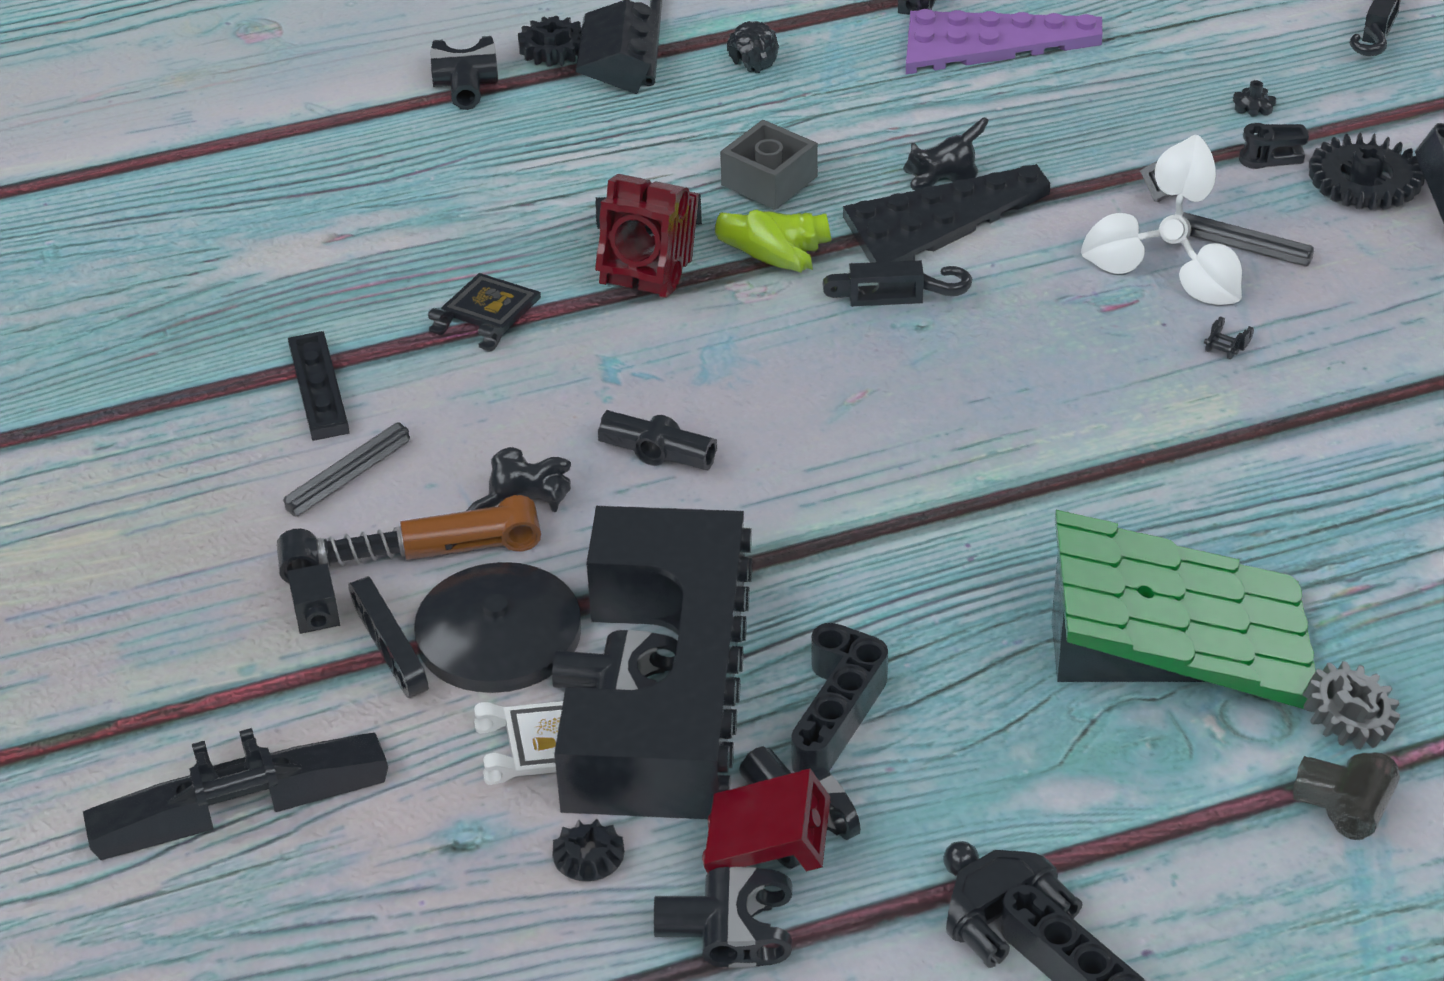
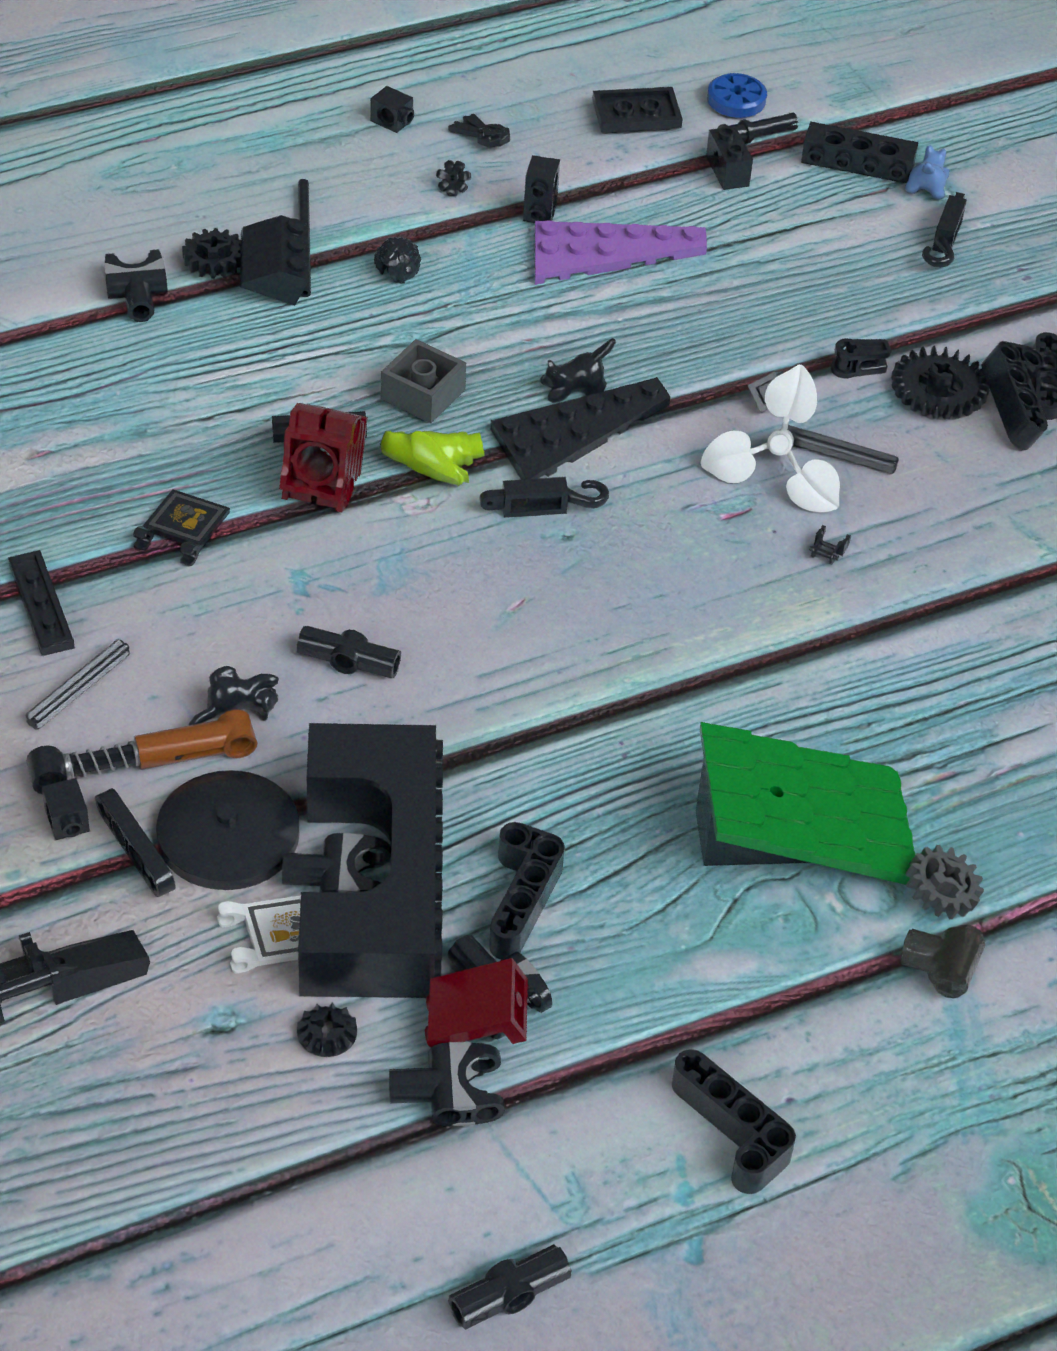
camera: 10 degrees left, 5 degrees up
(981, 893) = (657, 1052): black connector -> none
(1254, 99) = (842, 311): black plant -> none

